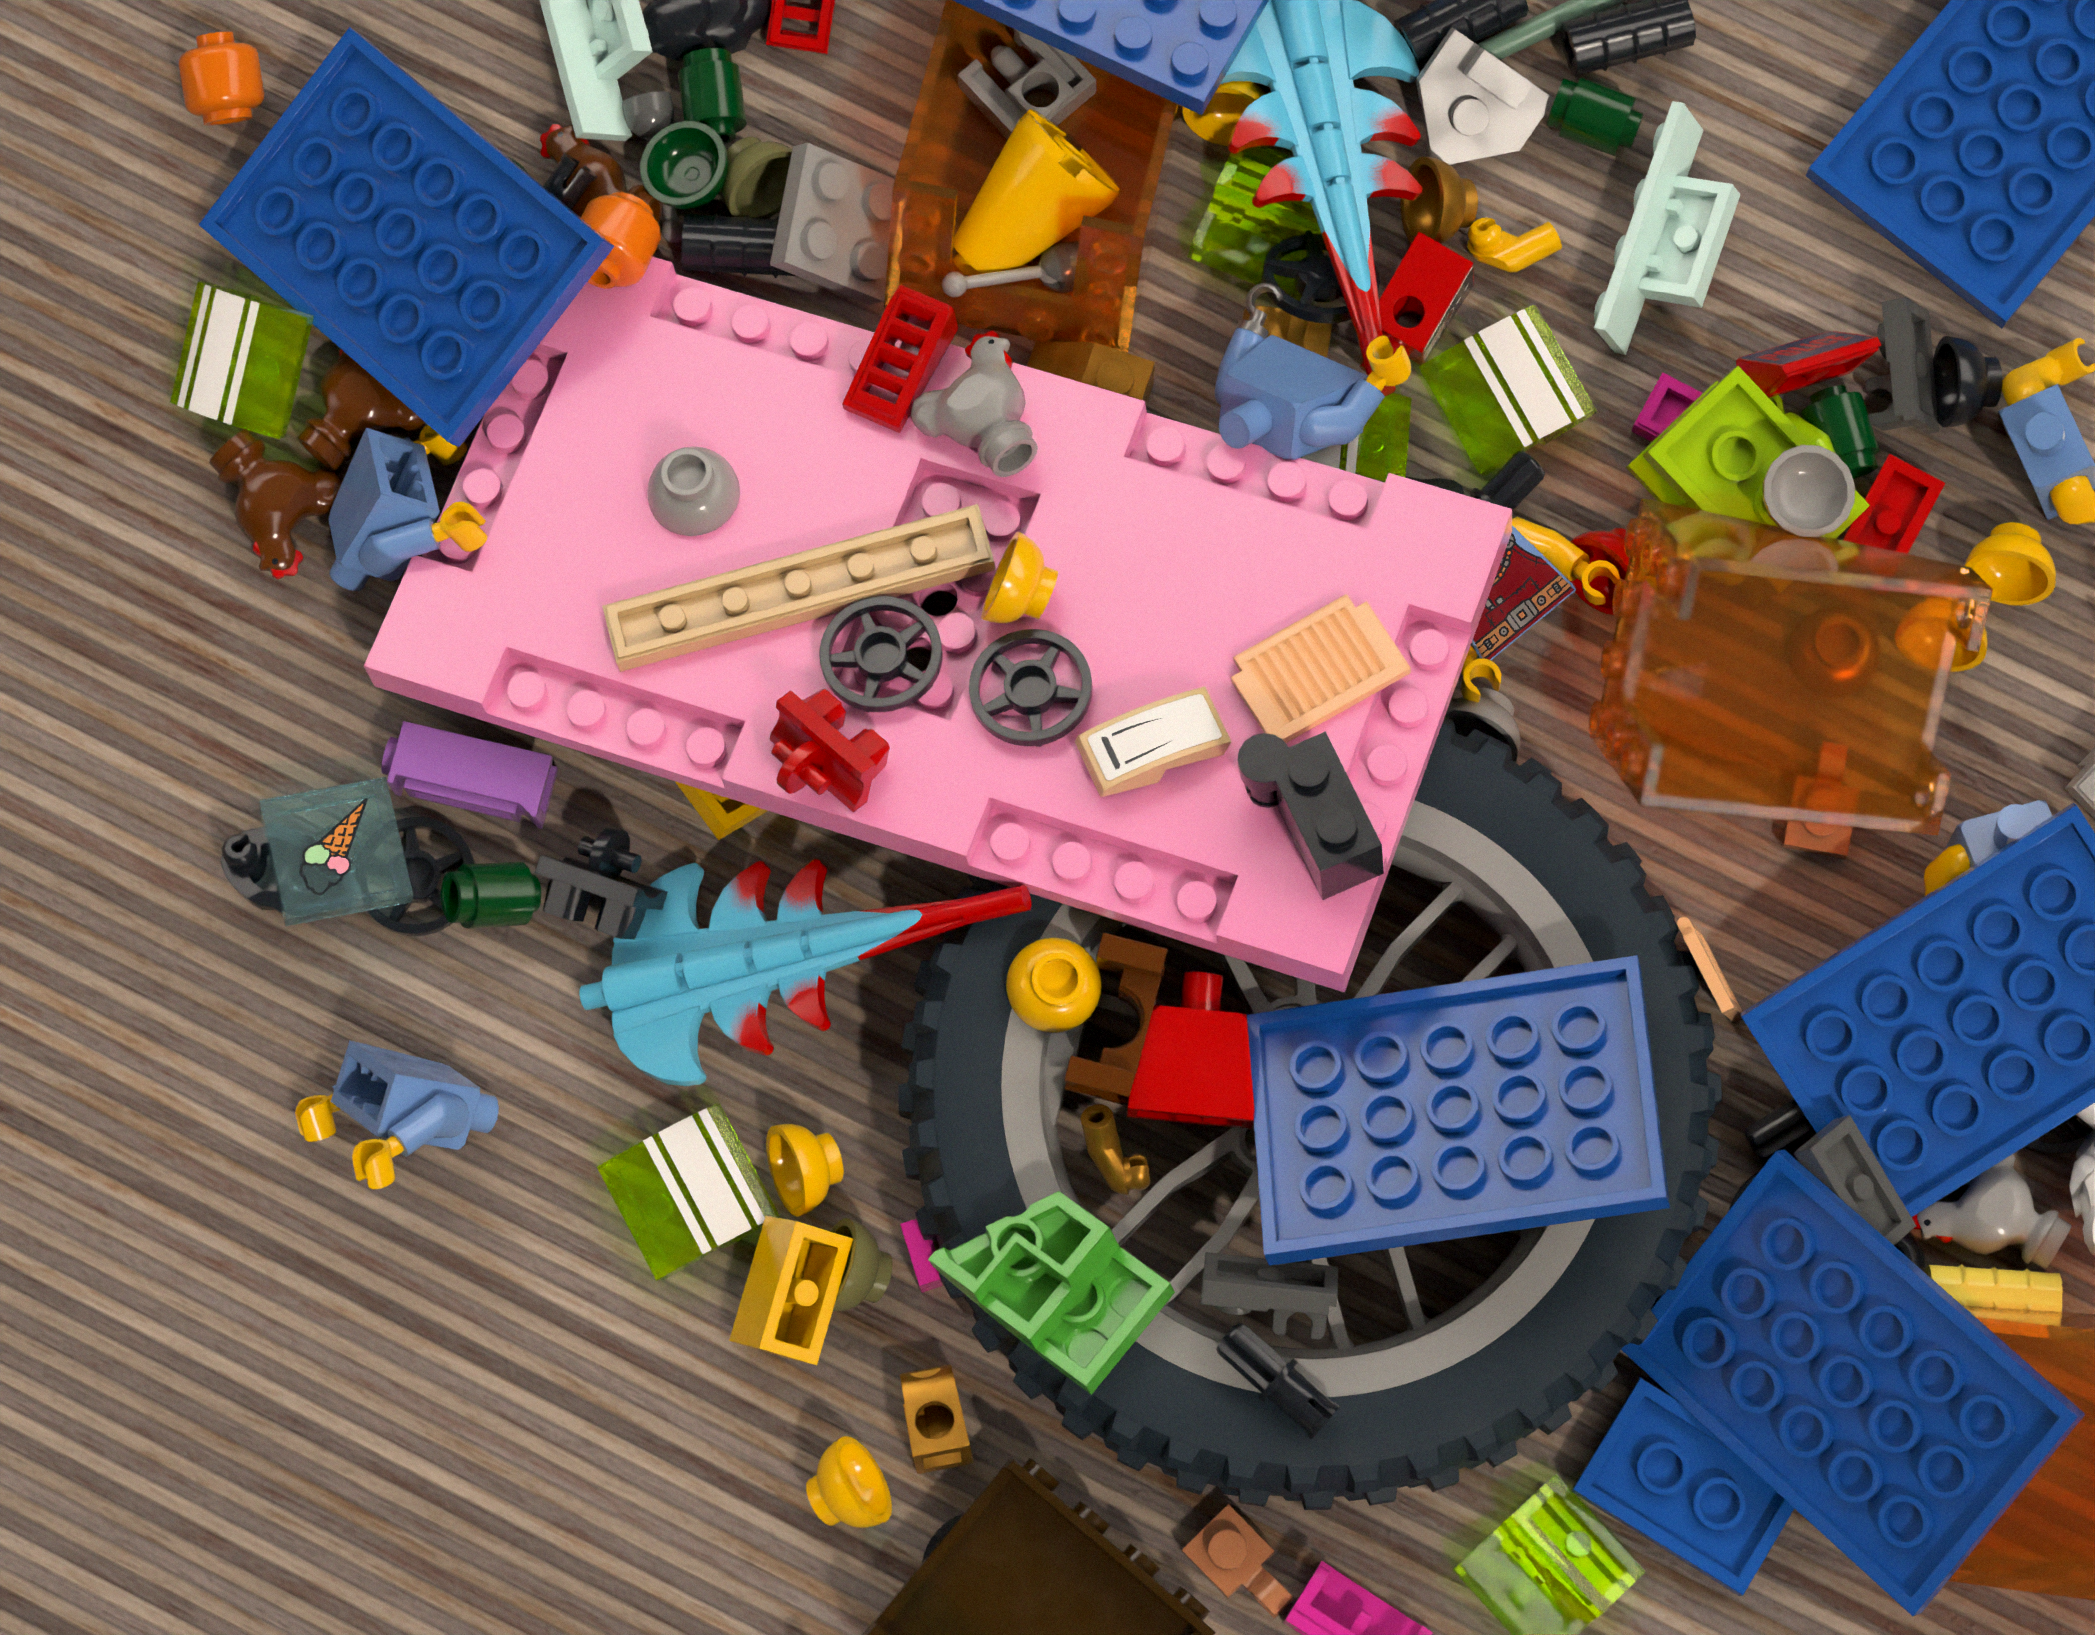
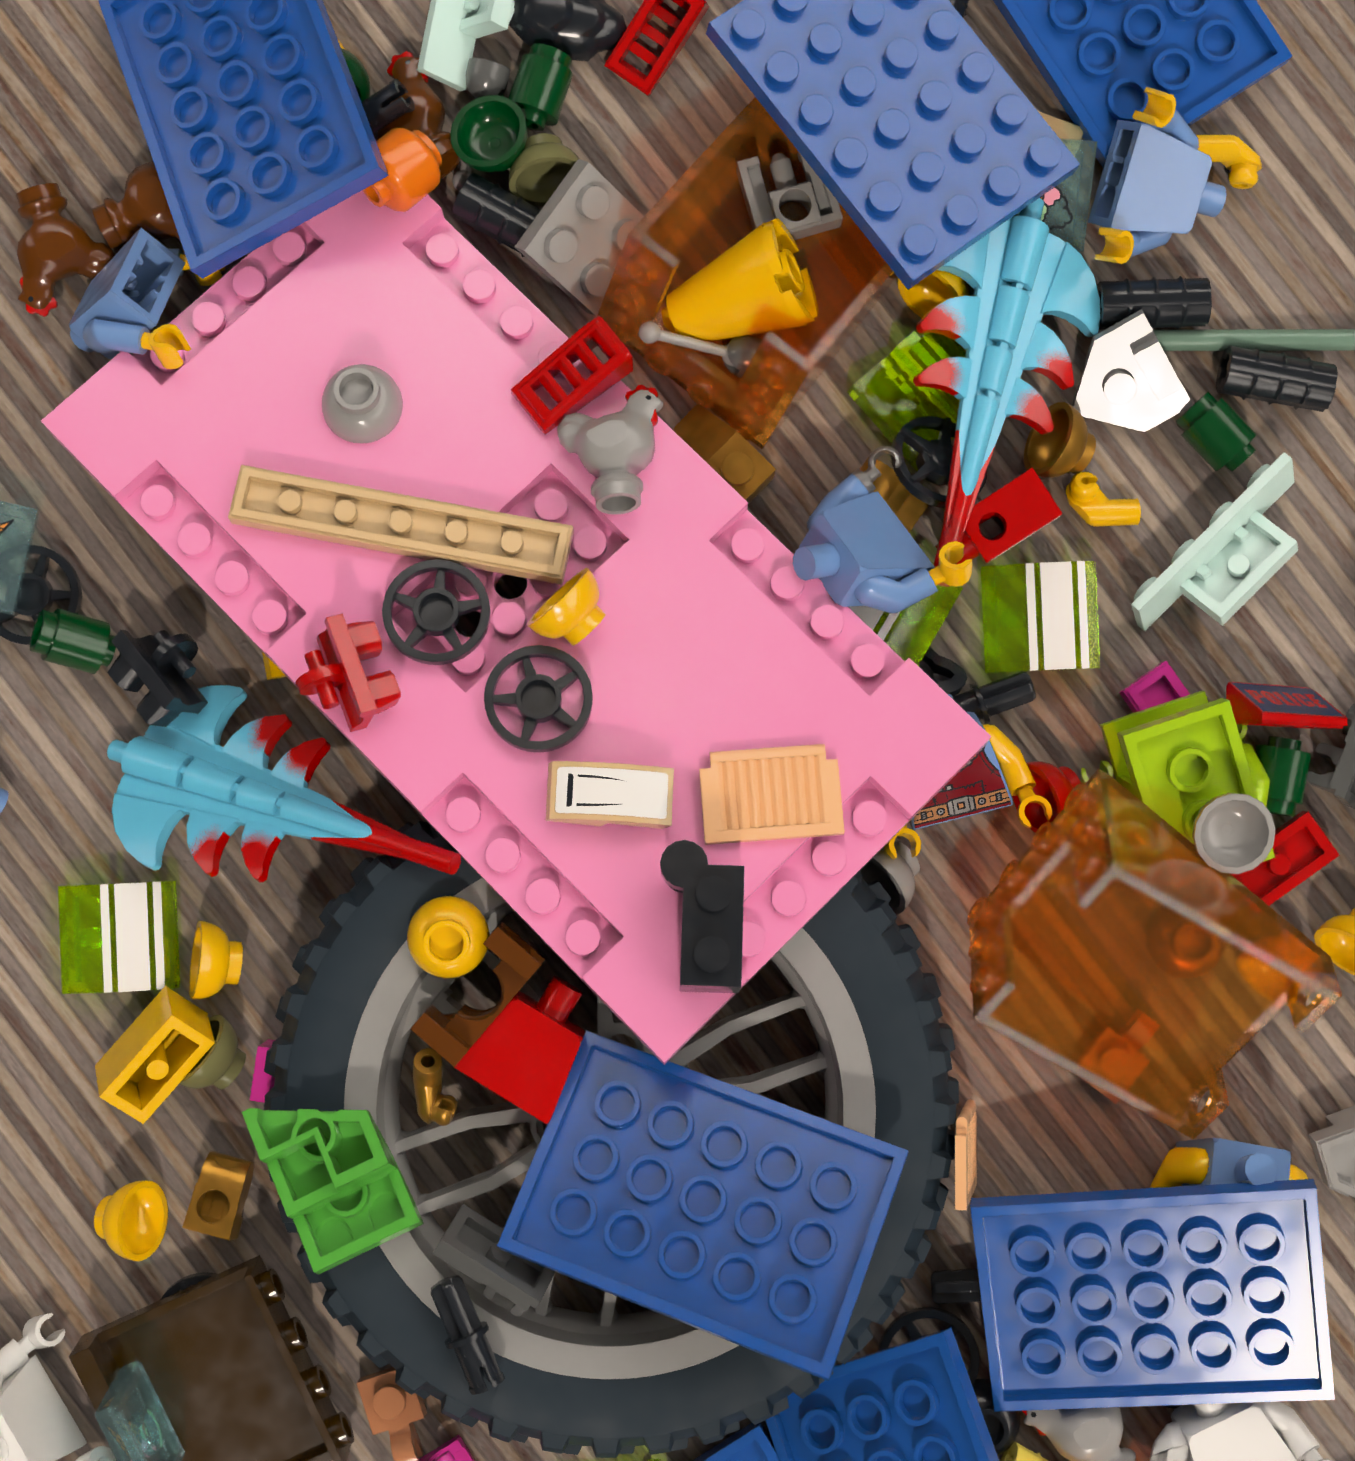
camera: 25 degrees right, 10 degrees up
(241, 360) = (78, 126): clear neon green slope -> none
(469, 773) = (103, 537): medium lavender window -> none
(1850, 1170) = (994, 1372): dark grey plate -> none

